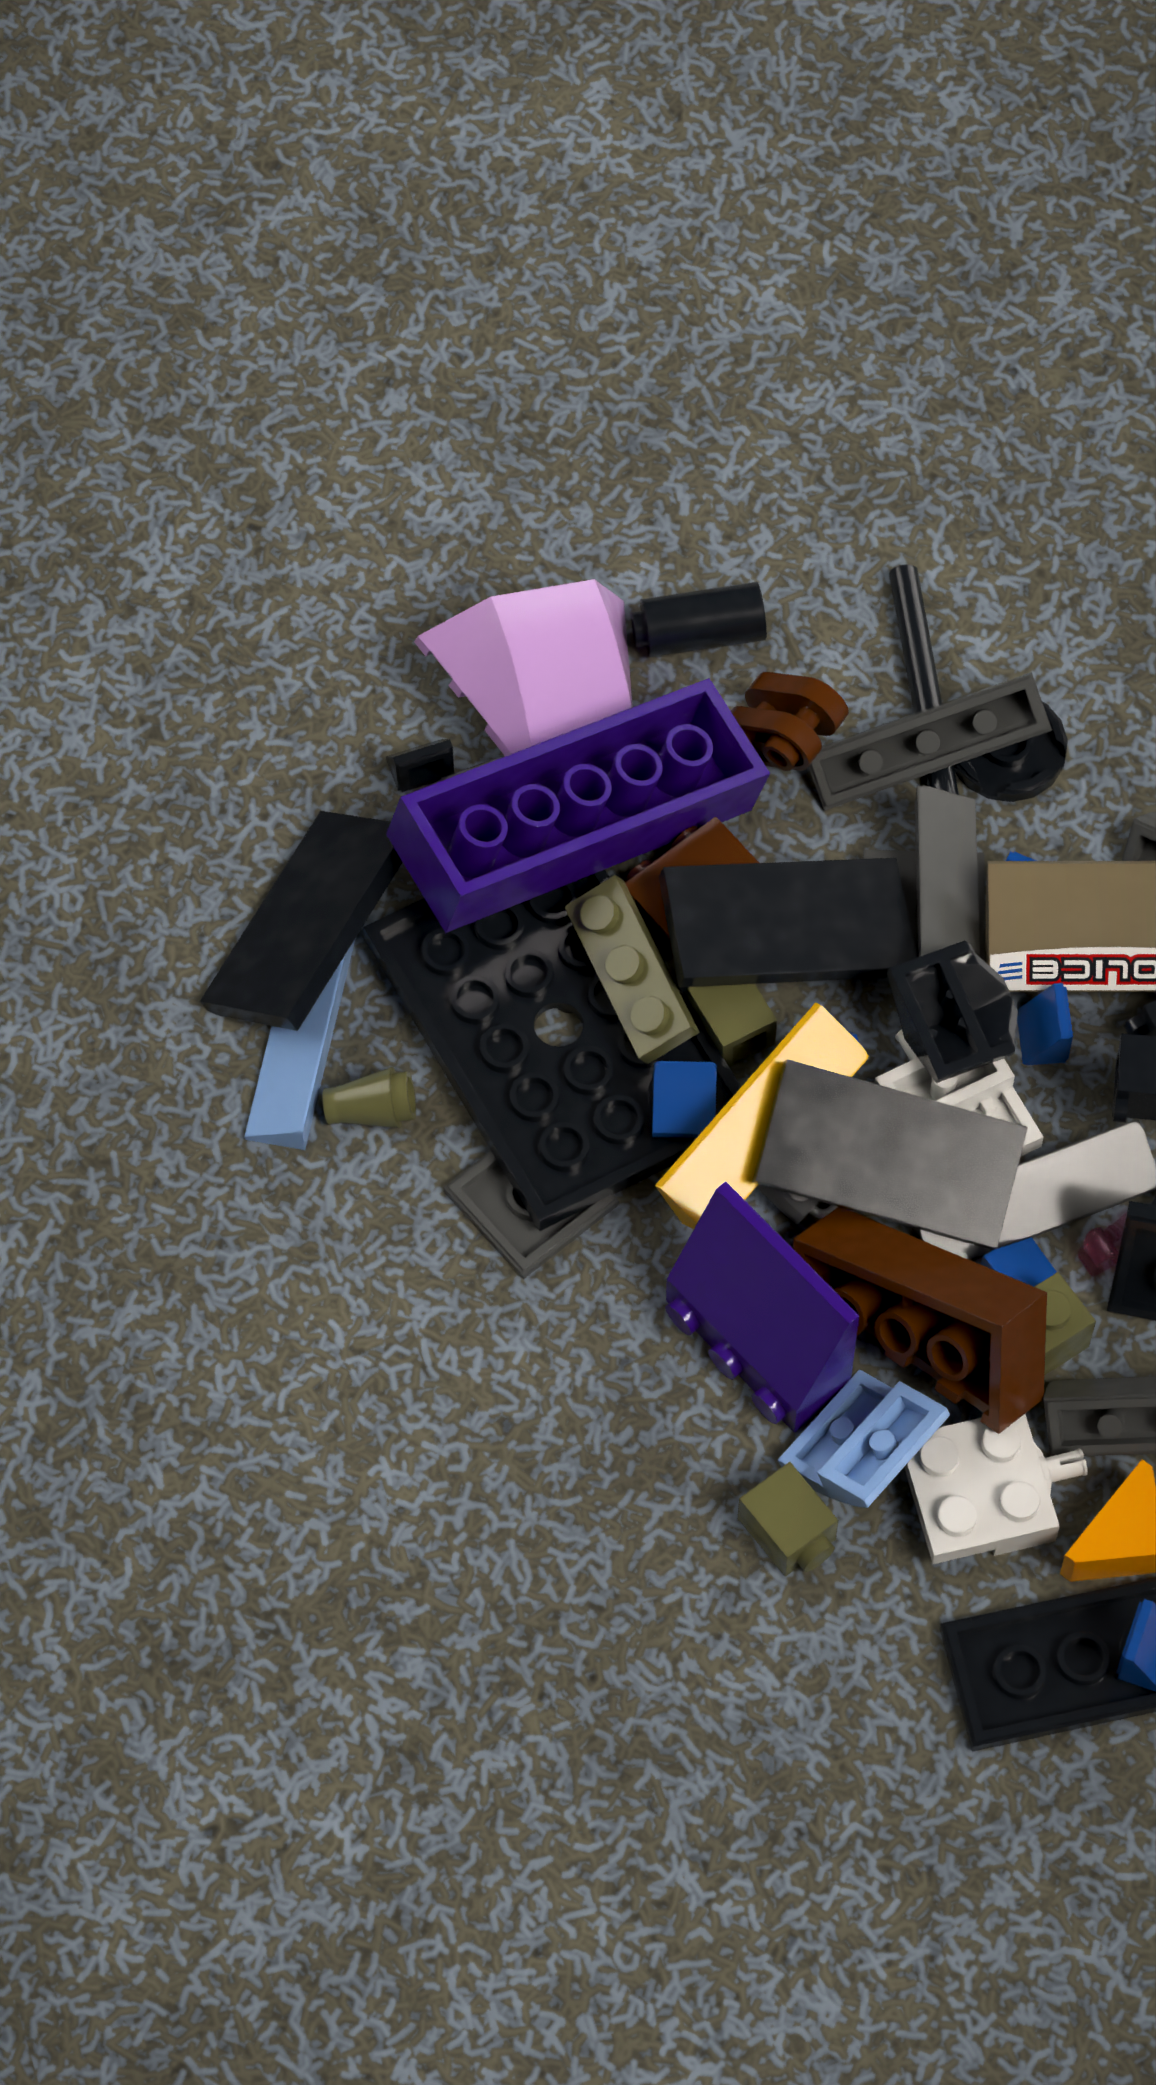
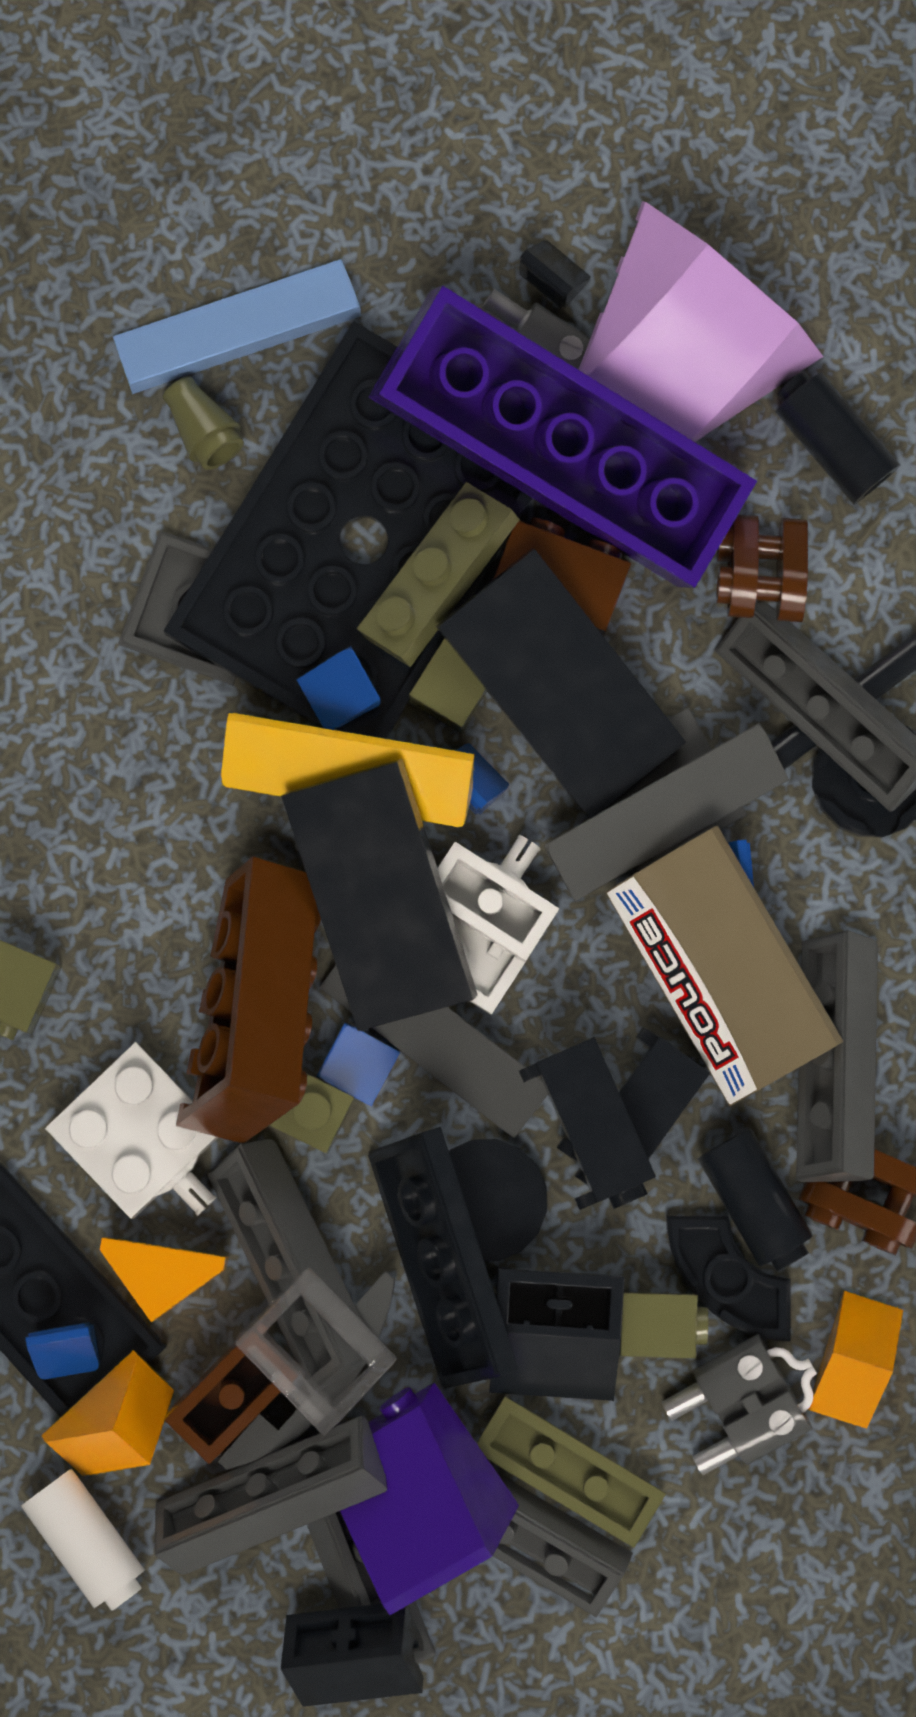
camera: 55 degrees right, 20 degrees up
(306, 922) = (330, 269): black tile -> none
(762, 1311) = (168, 866): dark purple slope -> none
(864, 1439) = (114, 1013): light blue slope -> none
(954, 1010) = (549, 880): black slope -> none
(1046, 1027) = (603, 958): blue slope -> none
(1099, 1249) = (419, 1115): clear pink hand -> none

